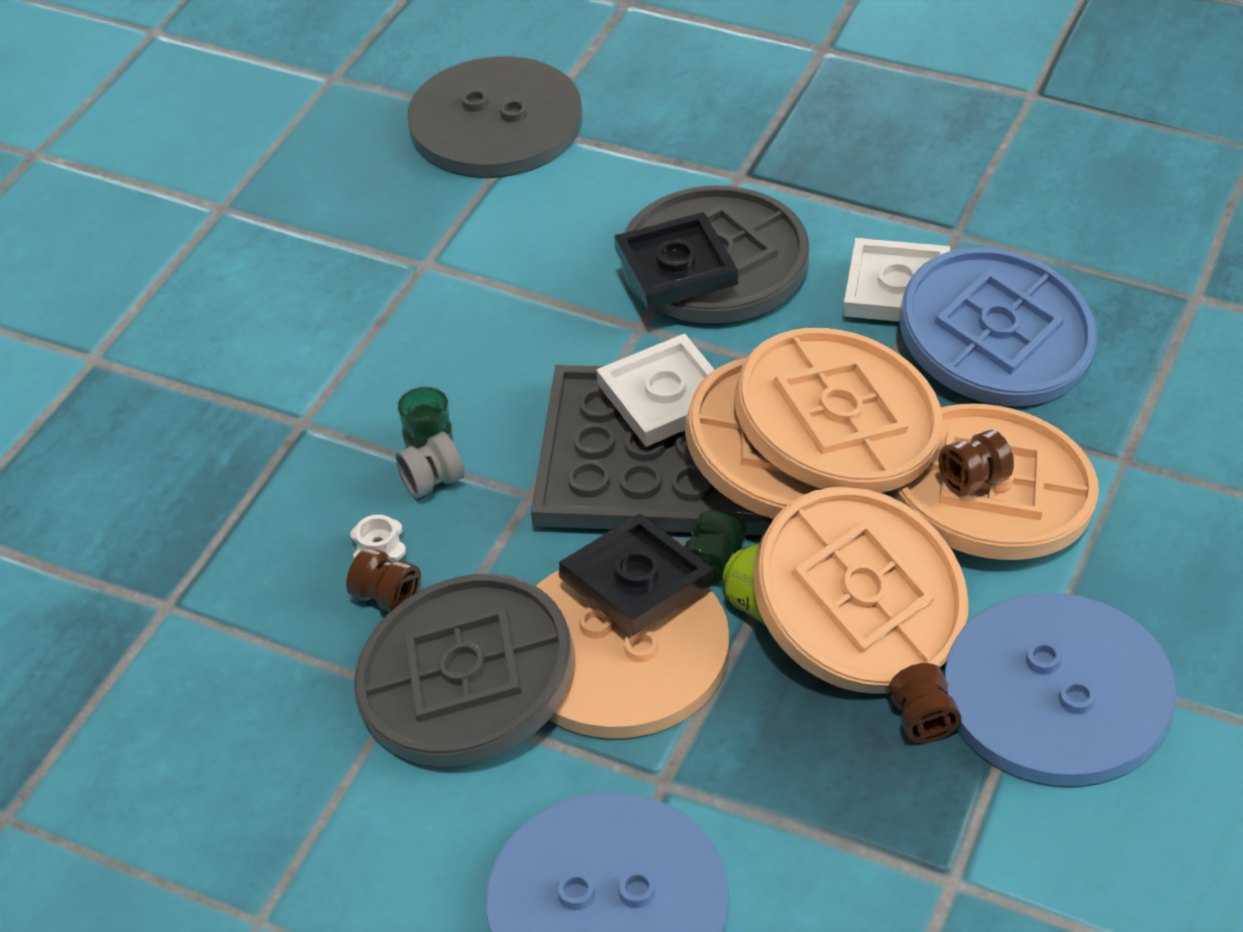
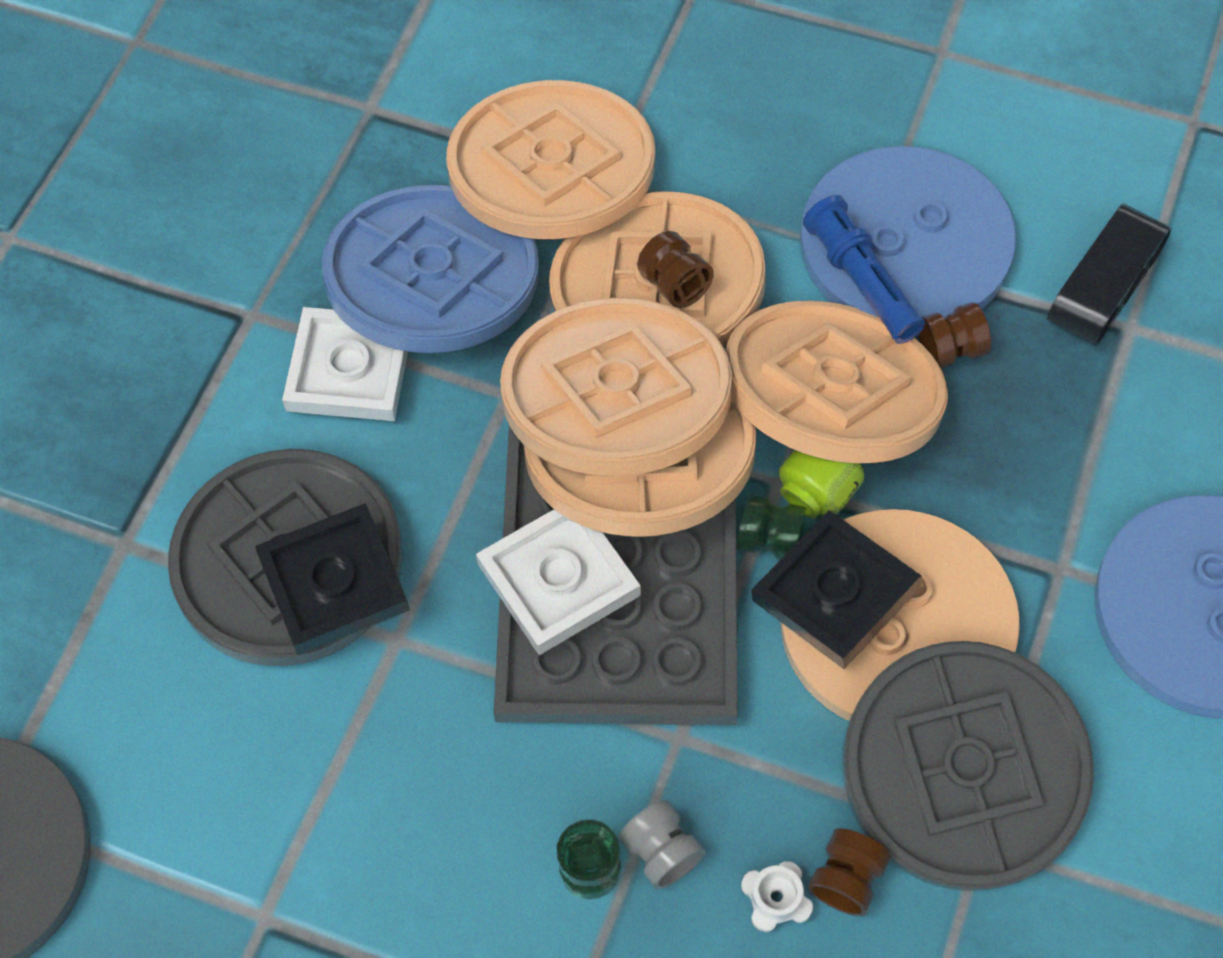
camera: 95 degrees left, 15 degrees up
(1010, 852) = (1109, 274): none -> black beam
(1015, 612) = (852, 251): none -> blue pin
(1132, 408) = (551, 159): none -> light nougat plate

